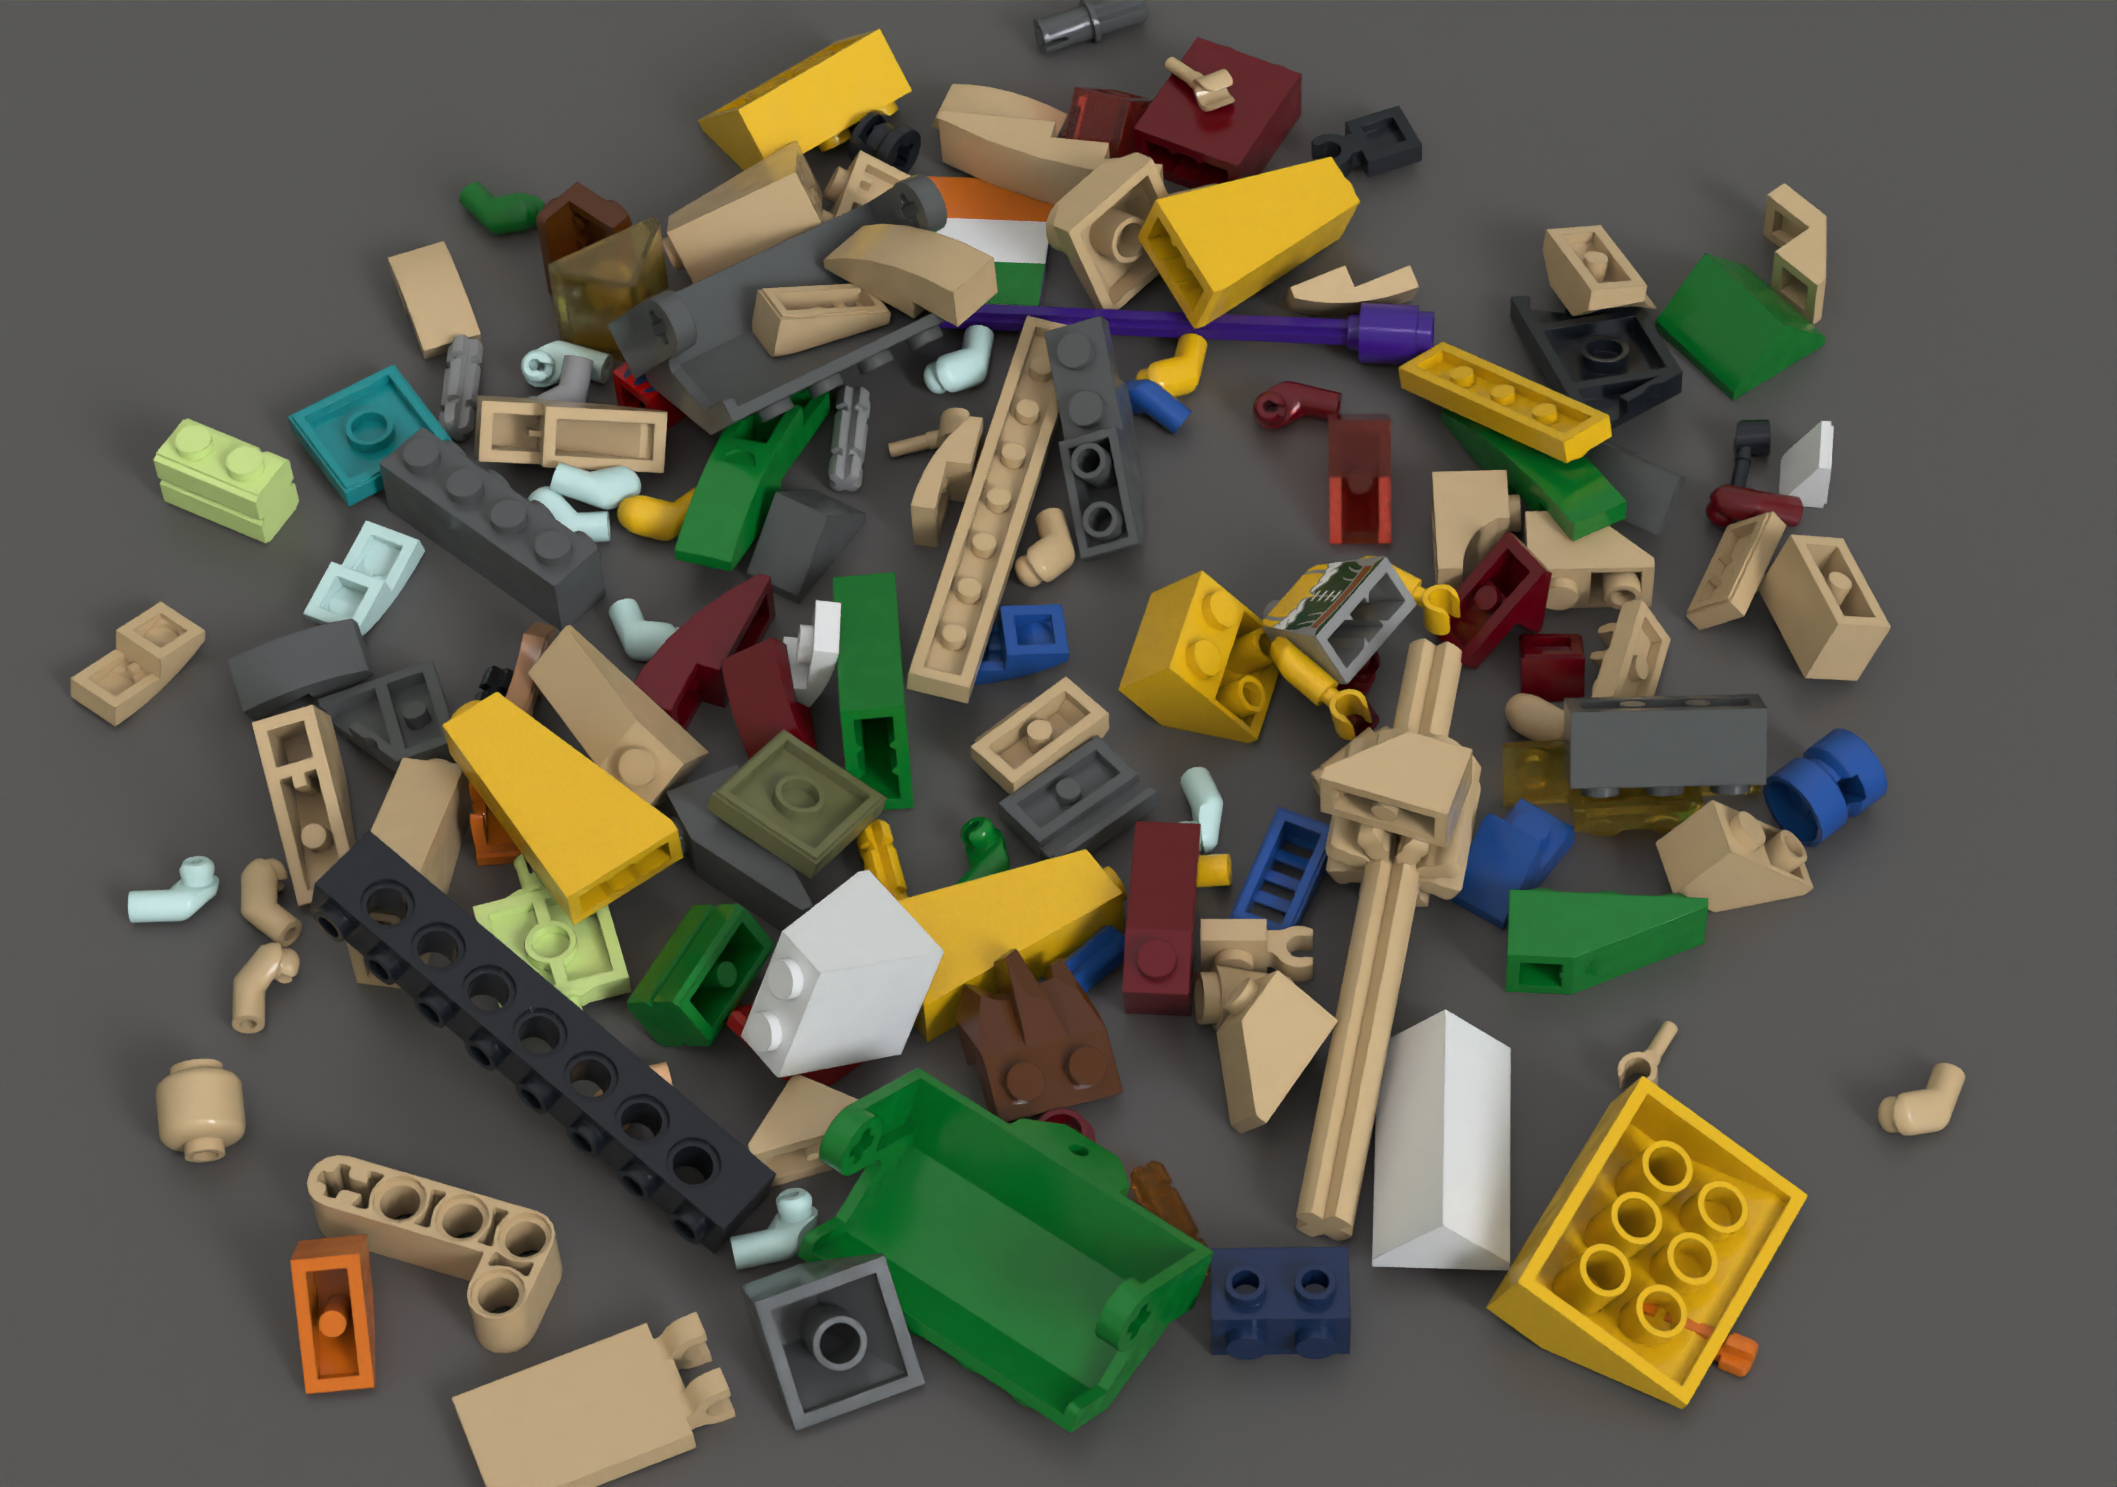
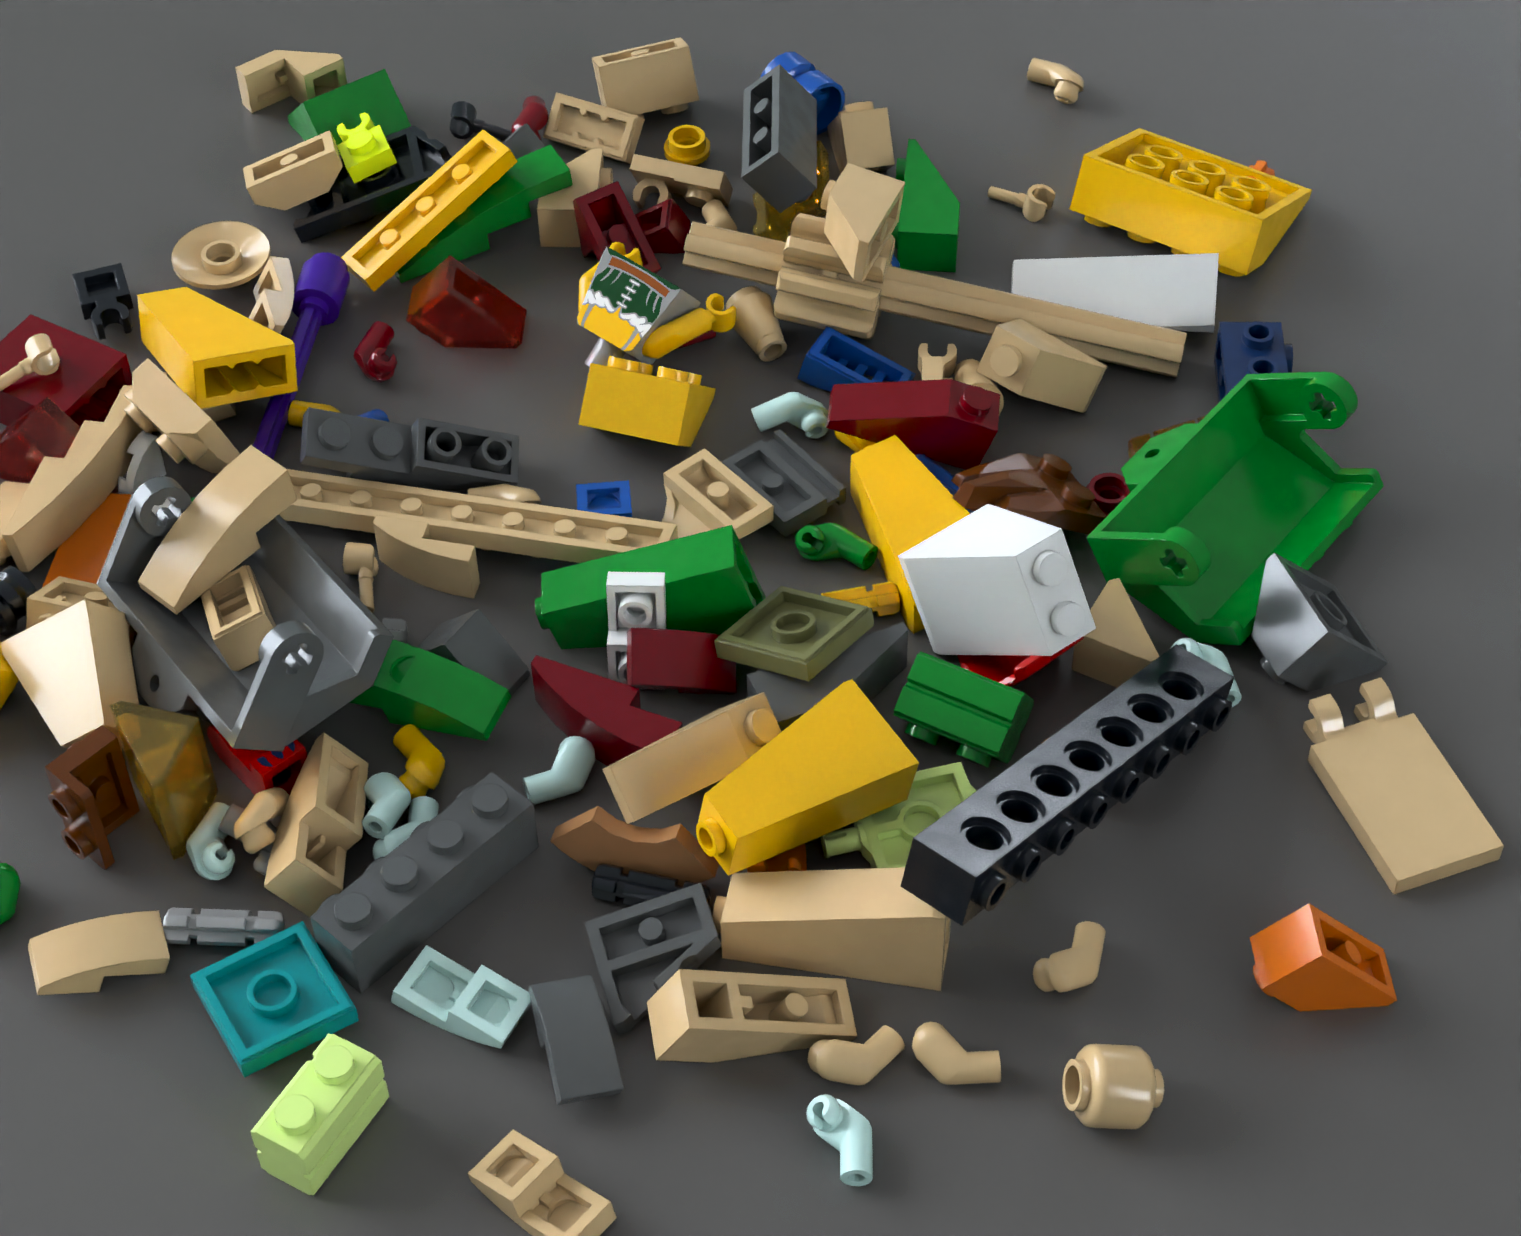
camera: 90 degrees left, 5 degrees down
(365, 1095) = (1073, 966): none -> tan arm
(366, 1198) = (1255, 838): tan beam -> none
(570, 378) = (252, 823): none -> tan arm
(1447, 233) = (220, 255): none -> tan dish
(1468, 520) = (532, 259): tan arch -> none
(1632, 333) = (364, 149): none -> neon yellow plate
(1721, 665) = (687, 145): none -> yellow plate
(1807, 467) = (499, 89): white slope -> none

